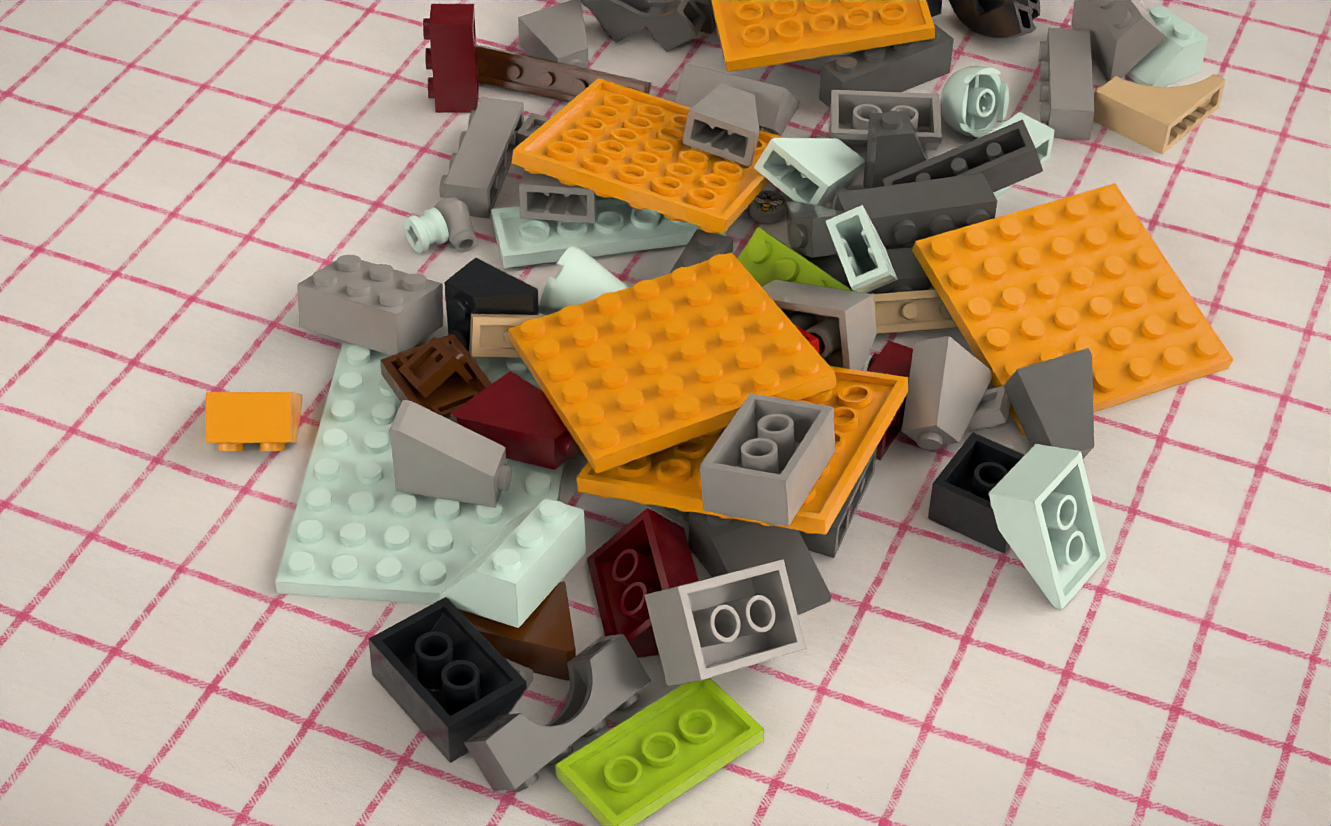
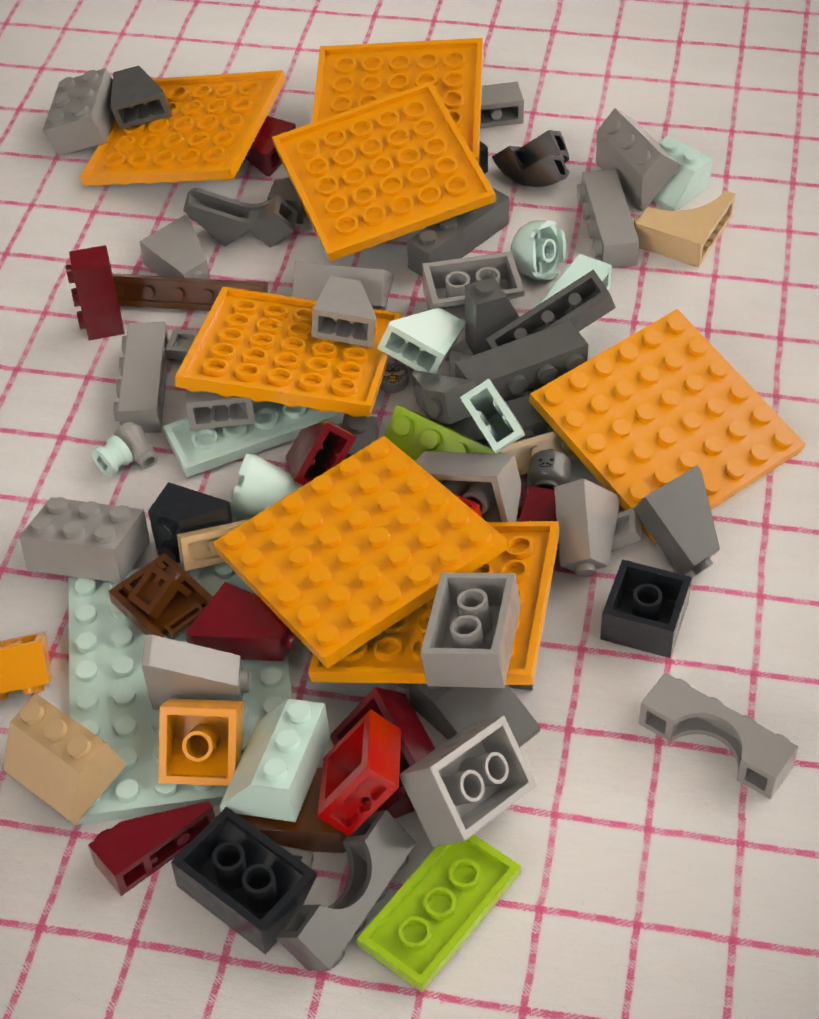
camera: 10 degrees left, 5 degrees up
(278, 516) = (59, 759): none -> tan slope
(341, 622) = (146, 843): none -> dark red slope
(436, 527) = (200, 741): none -> light orange slope
(606, 583) = (360, 767): none -> red window
(656, 255) = (318, 450): none -> dark red slope
(916, 325) = (549, 469): none -> dark grey head
(997, 607) = (679, 710): none -> light grey arch
(1050, 520) = (705, 626): light aqua slope -> none

